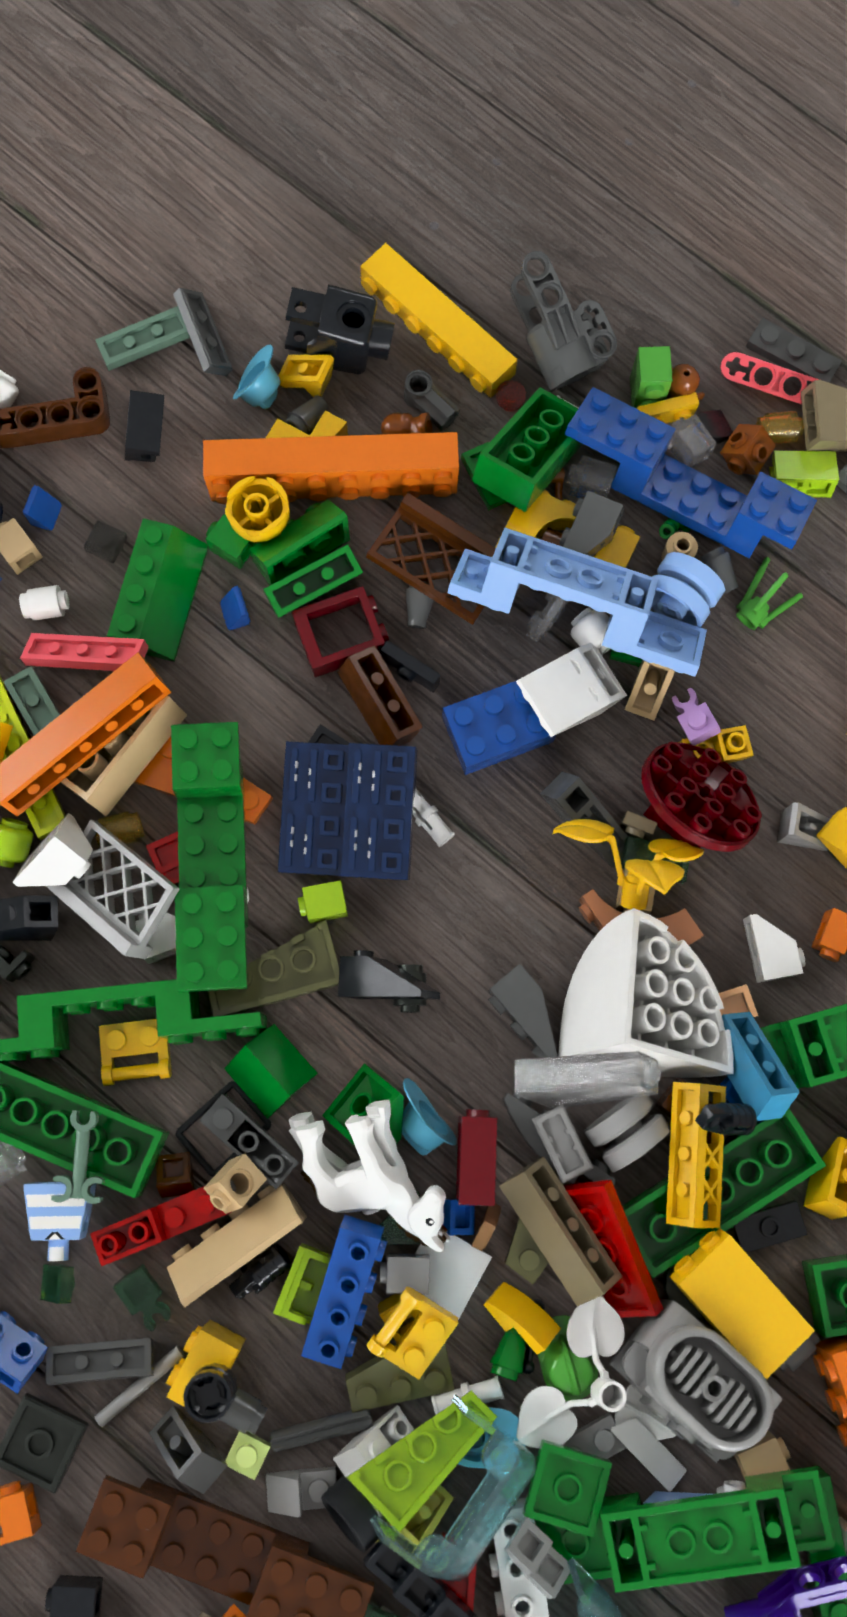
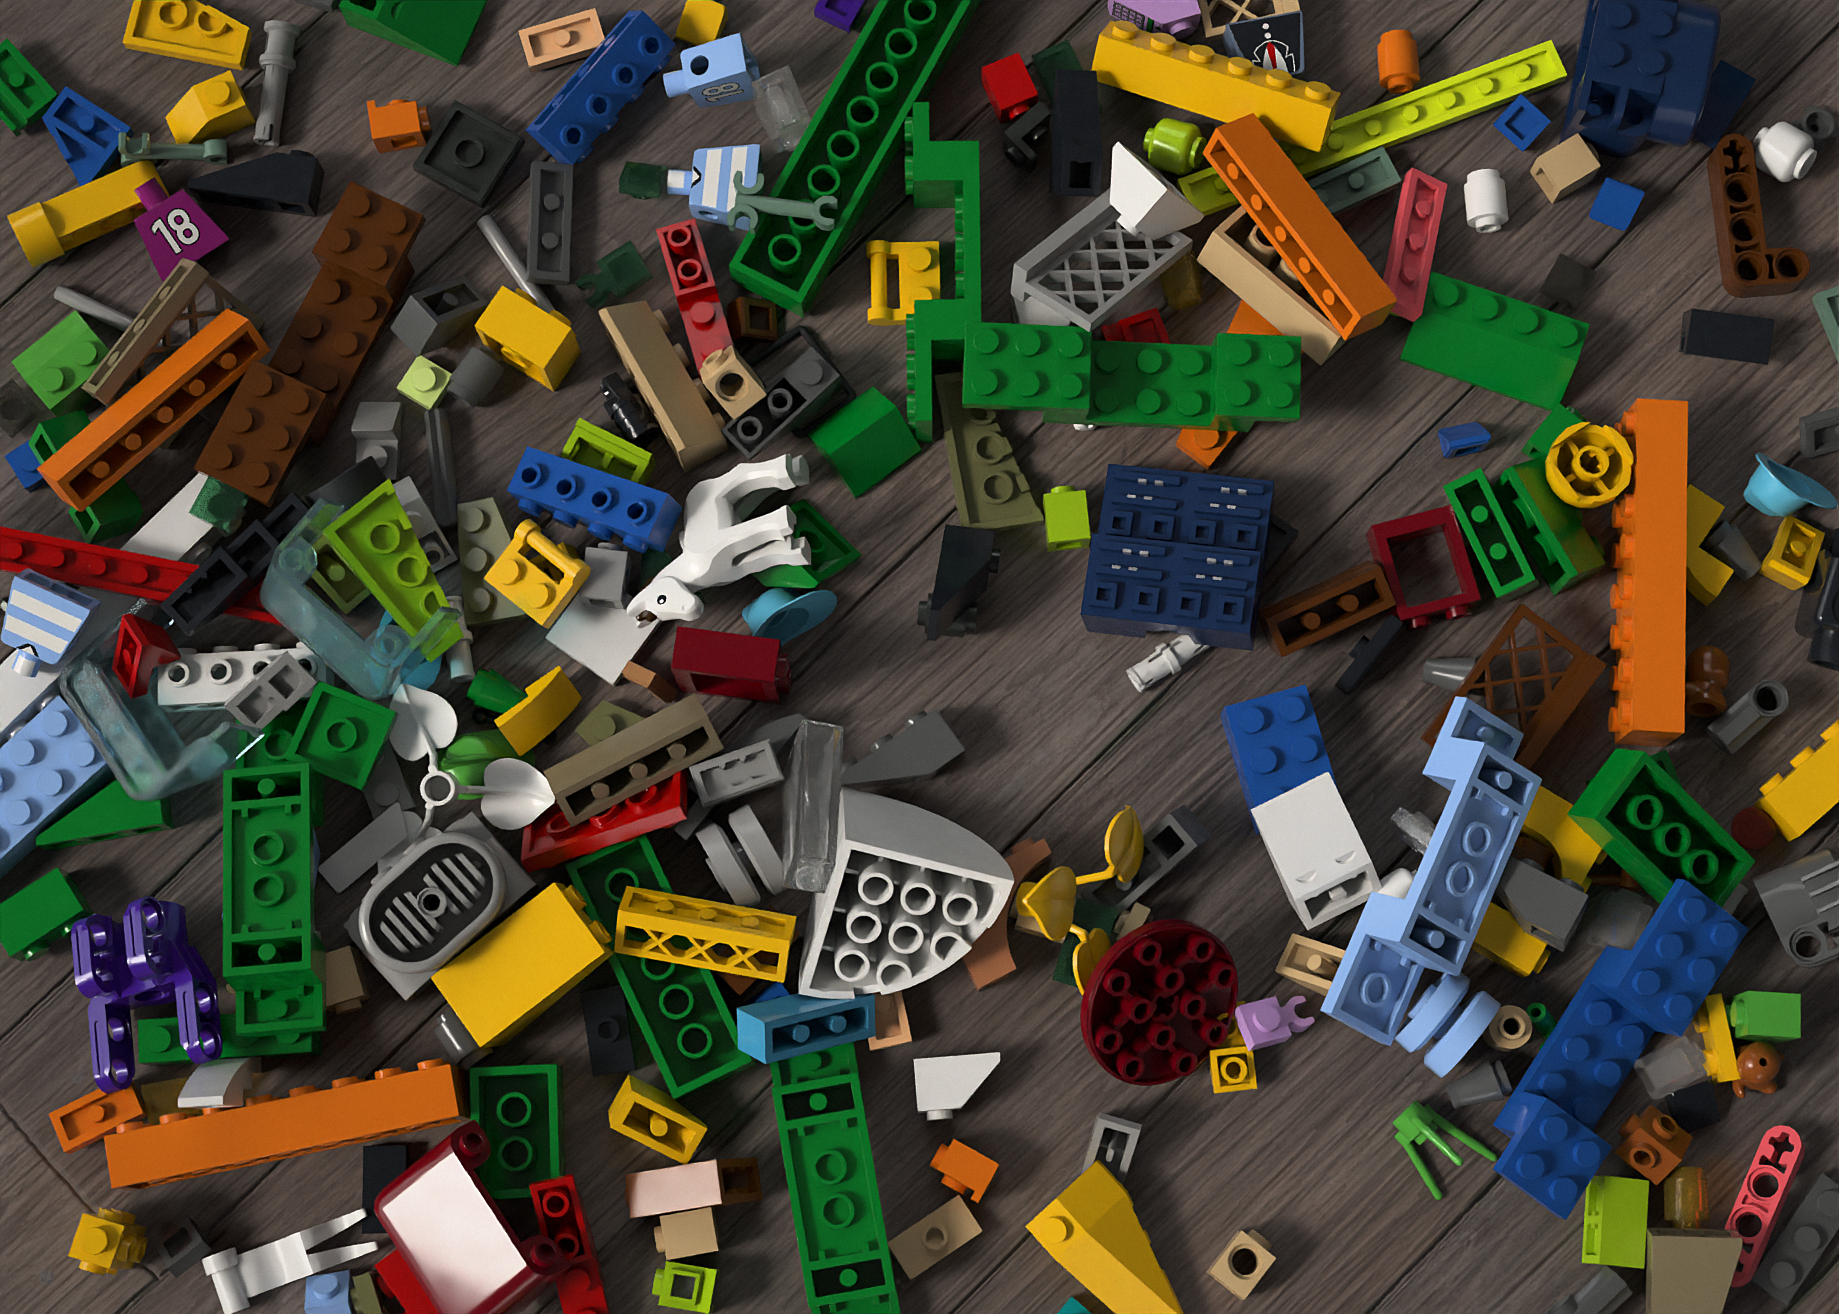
camera: 100 degrees right, 0 degrees up
(210, 1393) = (501, 329): black wheel -> none
(458, 1218) = (658, 645): blue plate -> none
(728, 1118) = (743, 970): black hinge -> none

